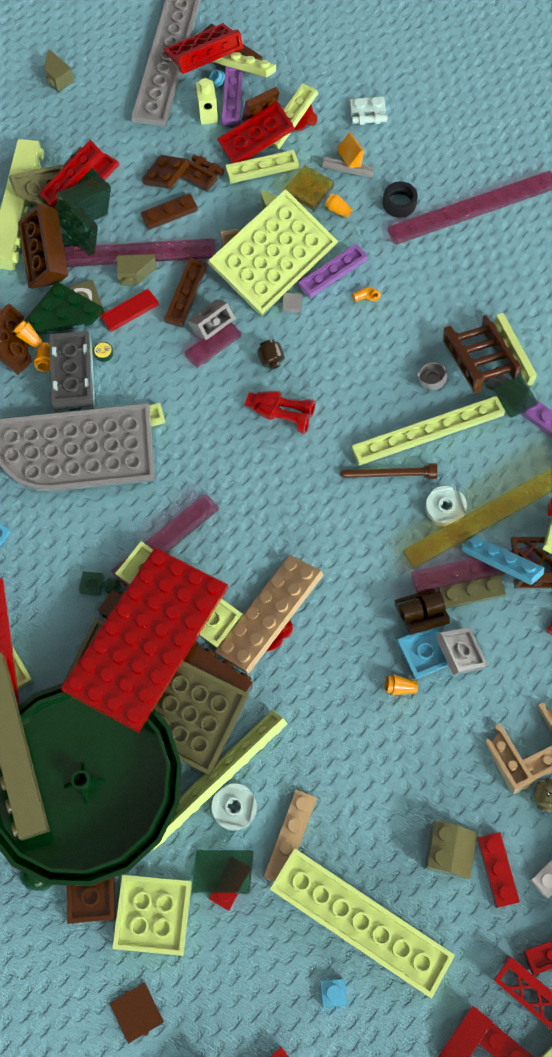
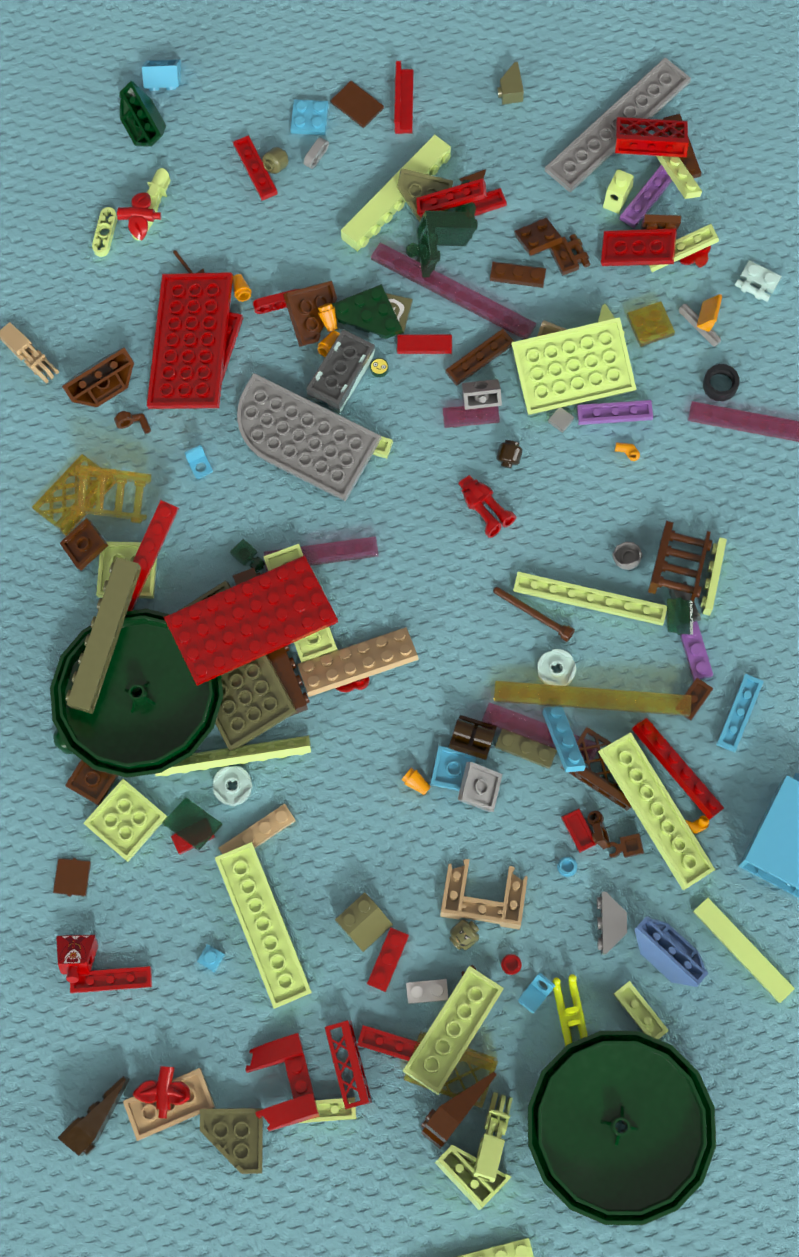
camera: 40 degrees right, 5 degrees up
(42, 247) = (388, 248): reddish brown slope -> none
(134, 268) = (452, 310): olive slope -> none
(217, 77) = (645, 171): medium azure plate -> none
(262, 166) = (624, 280): yellowish green plate -> none
(338, 206) = (663, 356): light orange cone -> none

